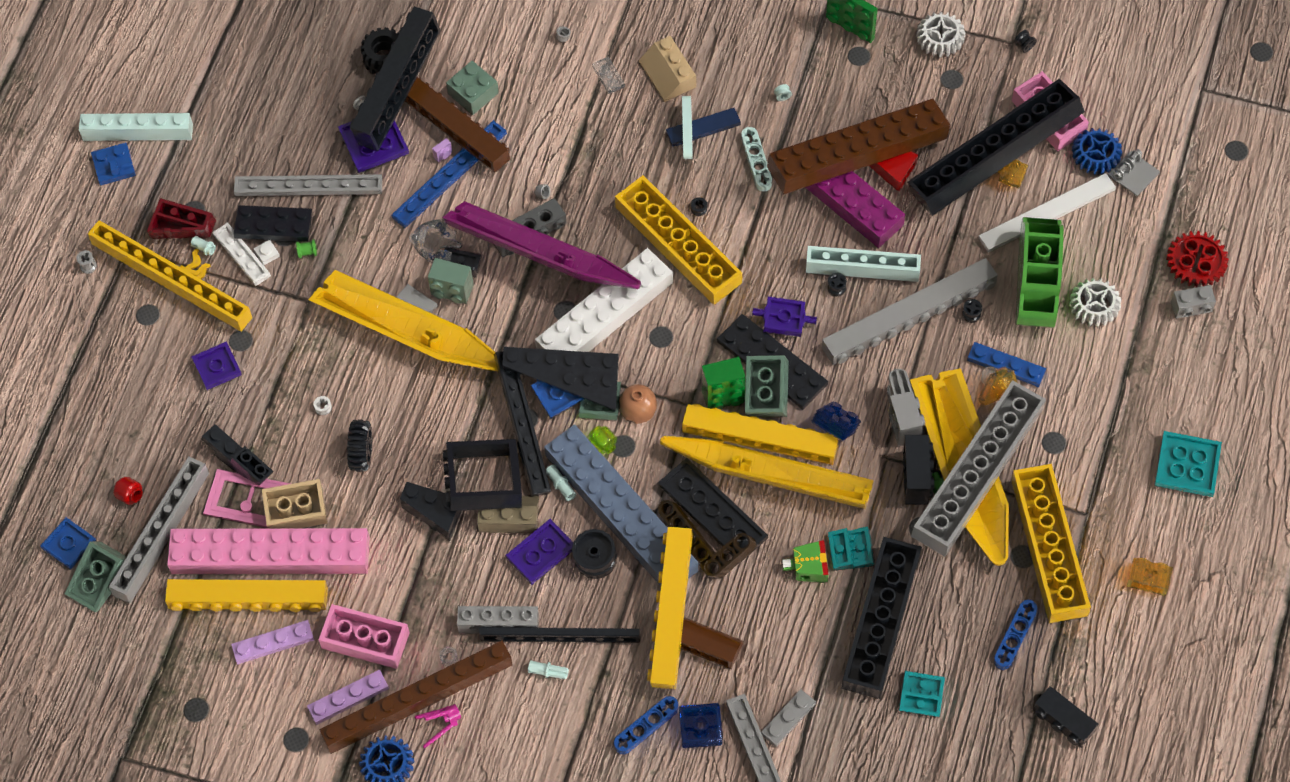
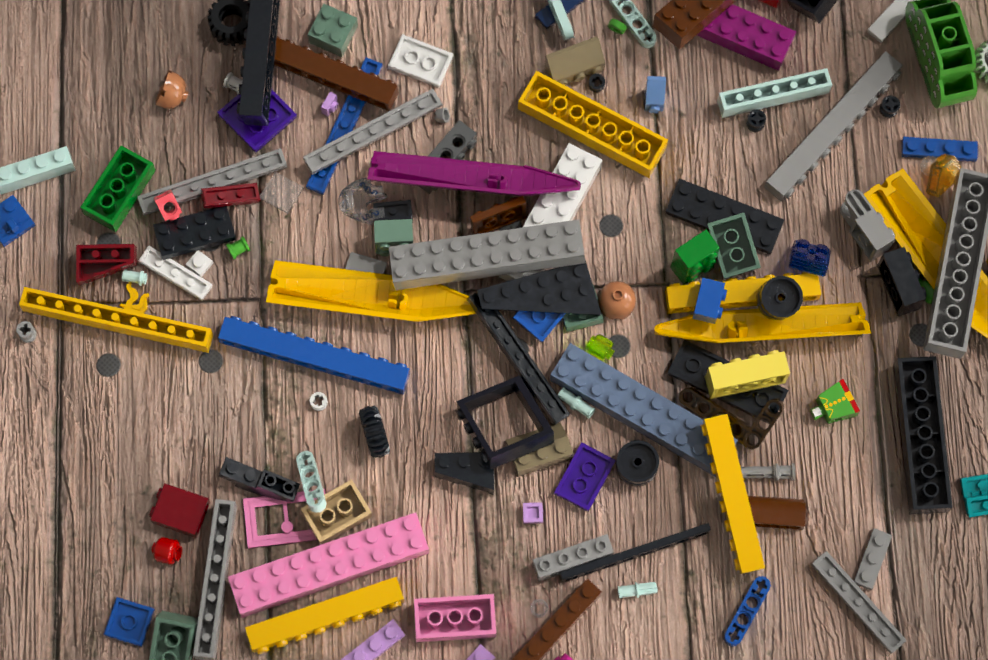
camera: 25 degrees left, 10 degrees up
(155, 459) = (179, 510): none -> dark red brick
(216, 365) = (199, 395): dark purple plate -> none
(220, 164) = (118, 188): none -> green brick
(251, 185) = (164, 198): none -> coral brick
(278, 484) = (313, 480): none -> light aqua beam
(304, 95) = (171, 91): none -> nougat cylinder
(318, 201) = (230, 195): none -> dark red tile
(336, 363) = (314, 355): none -> blue brick
(367, 214) = (281, 192): none -> clear piece
(471, 184) = (372, 131): none -> light grey plate
(478, 568) = (532, 513): none -> lavender plate
(527, 320) = (487, 254): none -> light grey brick
(543, 139) = (420, 61): none -> white tile
(554, 293) = (498, 216): none -> reddish brown plate
(684, 179) = (575, 62): none -> dark tan slope
(706, 714) = (802, 583): clear blue brick -> none
(720, 427) = (709, 300): none -> blue brick
(725, 605) = (776, 472): none -> light grey pin
(729, 504) = (747, 374): none -> light yellow brick
(738, 162) = (617, 26): none -> bright green tile
(748, 230) = (654, 94): none -> medium blue slope
(784, 316) = (720, 169): dark purple plate -> none
(784, 455) = (768, 298): none -> black wheel
(851, 548) = (867, 376): teal slope -> none

